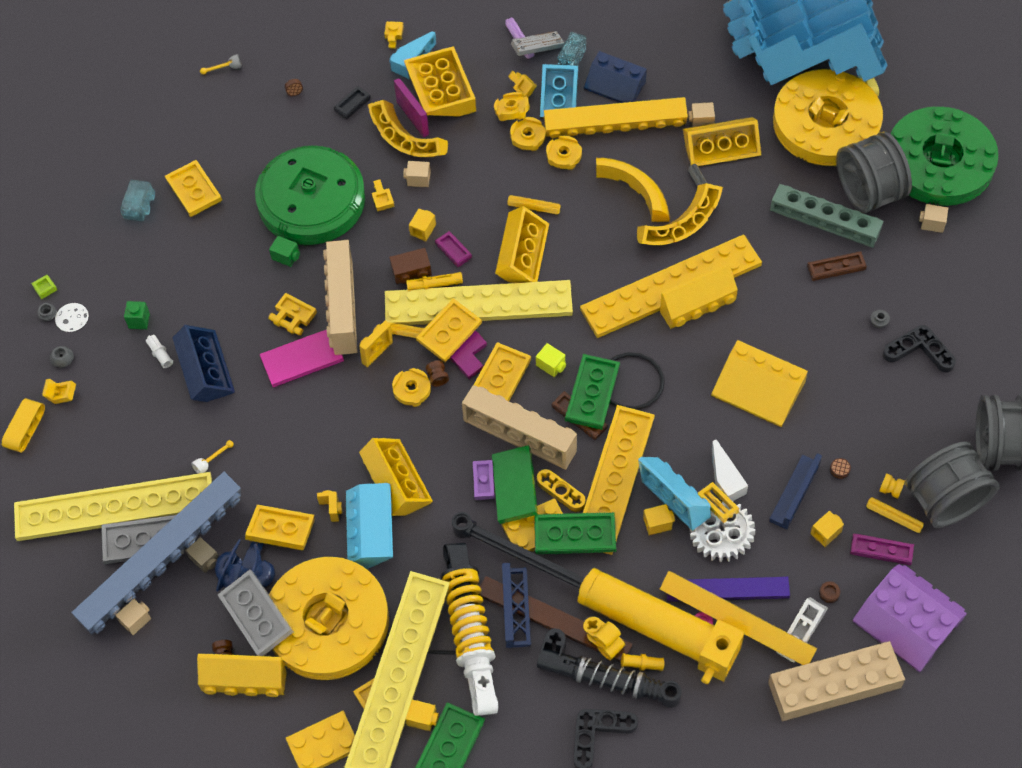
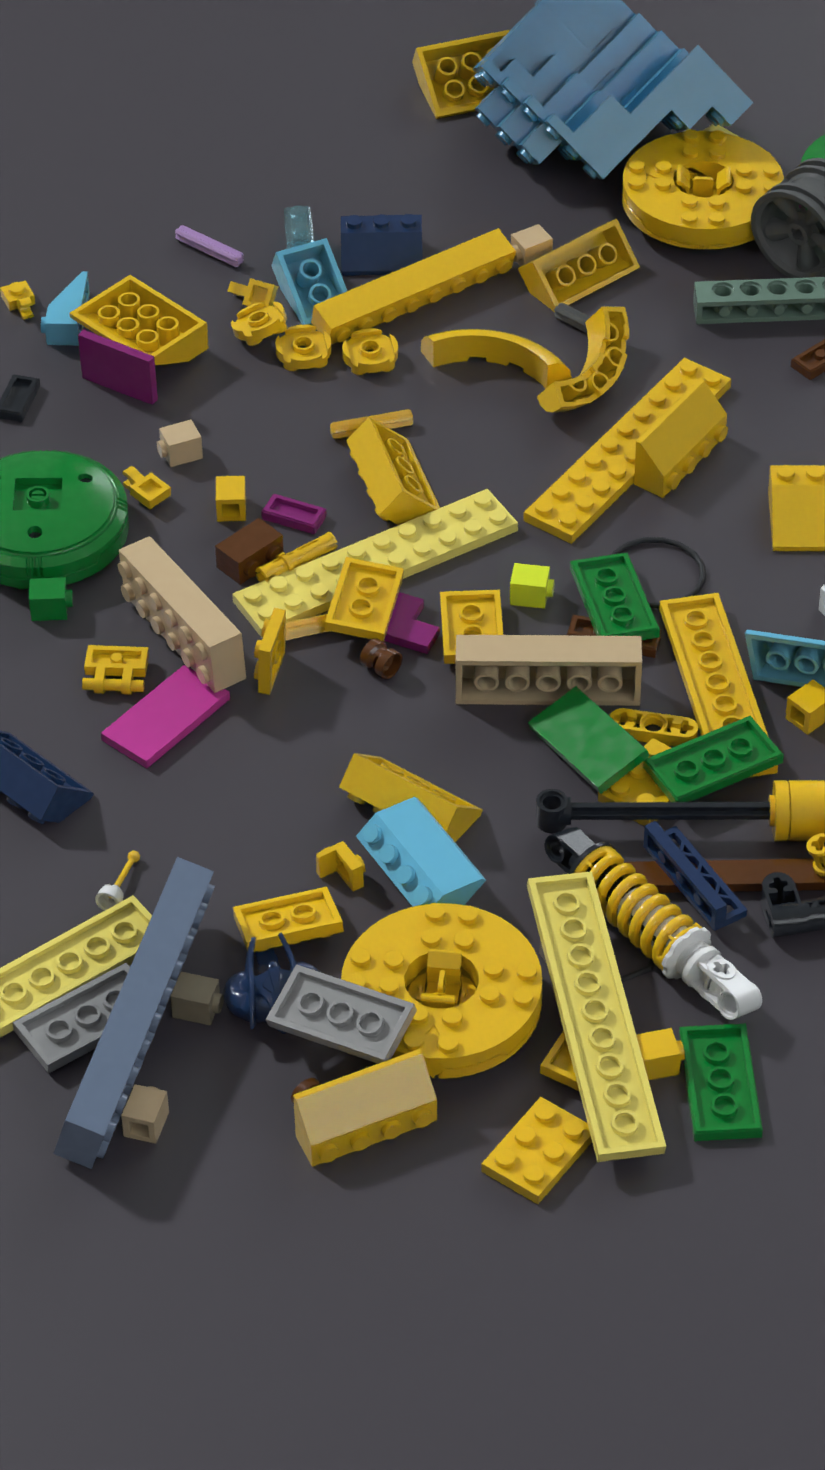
camera: 30 degrees left, 15 degrees down
(395, 134) = (128, 410): yellow brick -> none
(411, 397) = (346, 701): yellow plate -> none
(483, 480) = (538, 755): medium lavender plate -> none
(537, 43) = (242, 240): light grey tile -> none

